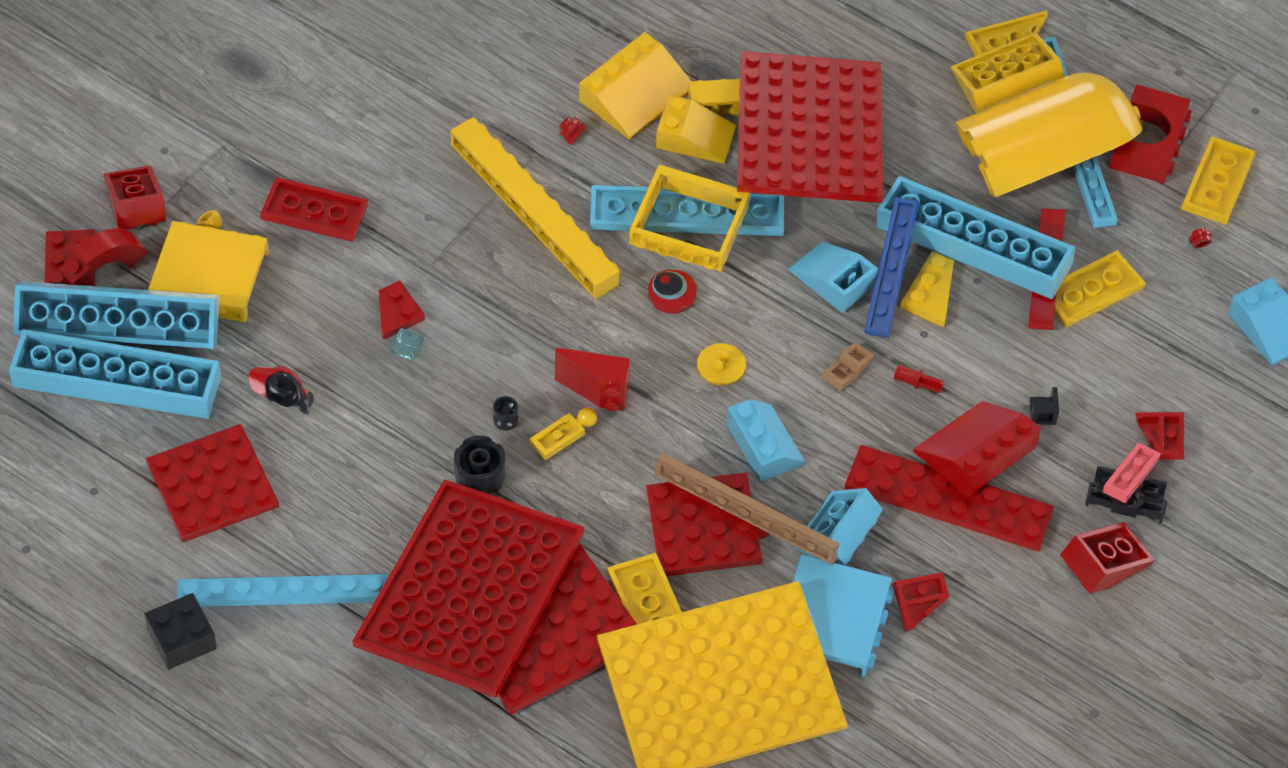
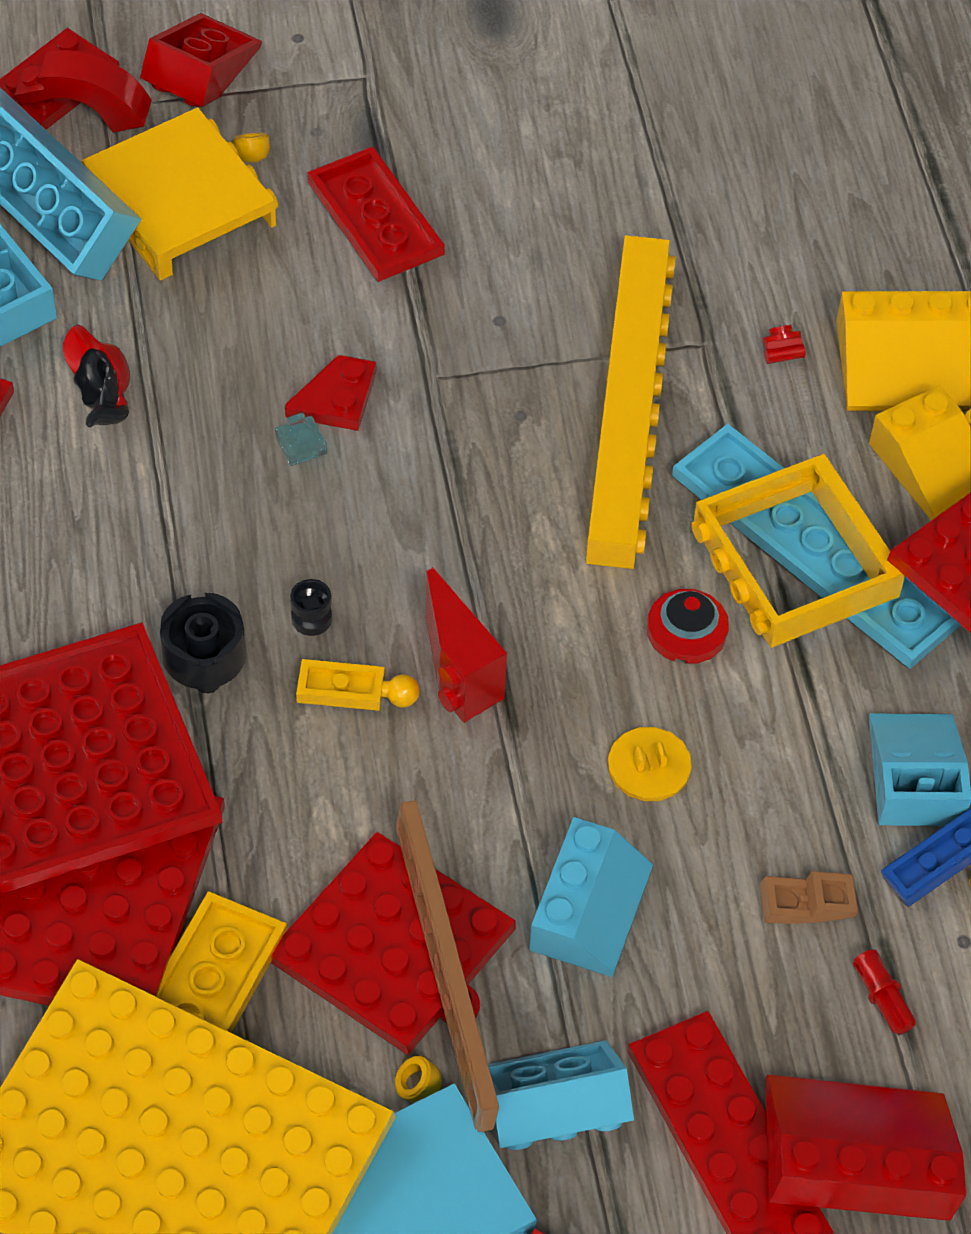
camera: 45 degrees right, 0 degrees up
(785, 570) = (429, 1083): none -> yellow piece

